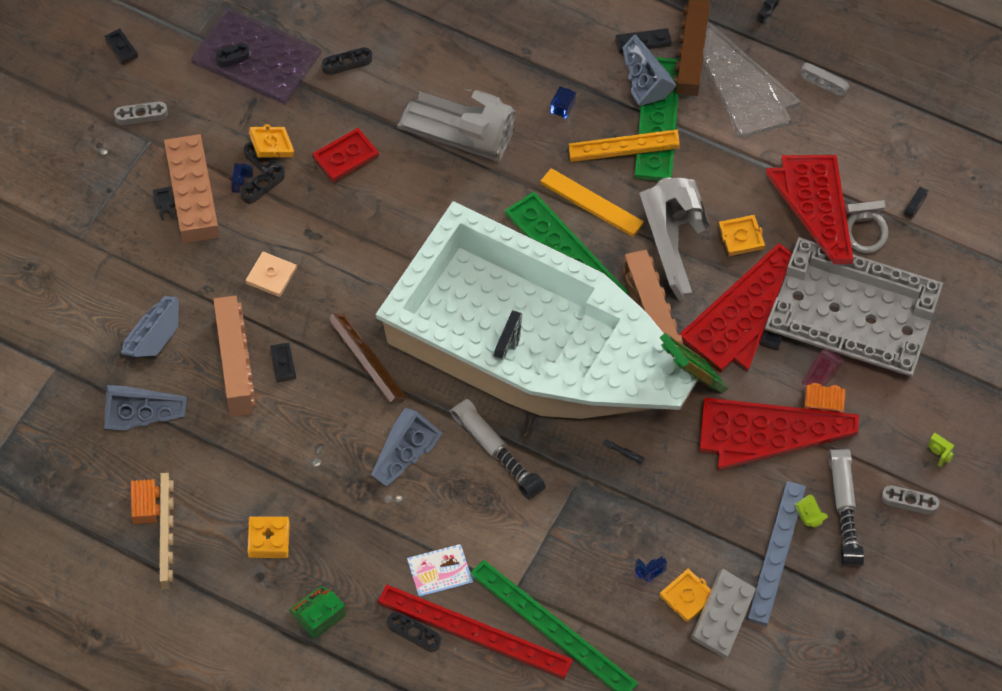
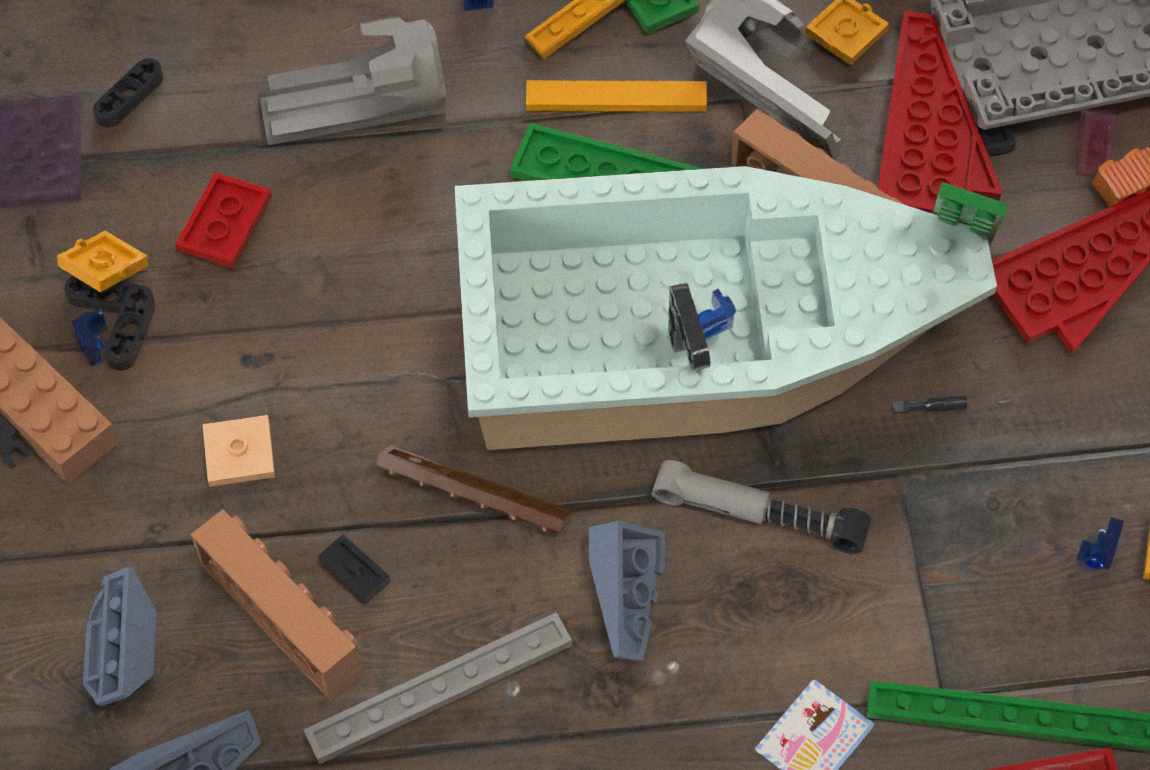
camera: 30 degrees left, 0 degrees up
(281, 440) = (437, 688): none -> light grey plate
(529, 342) = (721, 318): none -> clear blue bracket

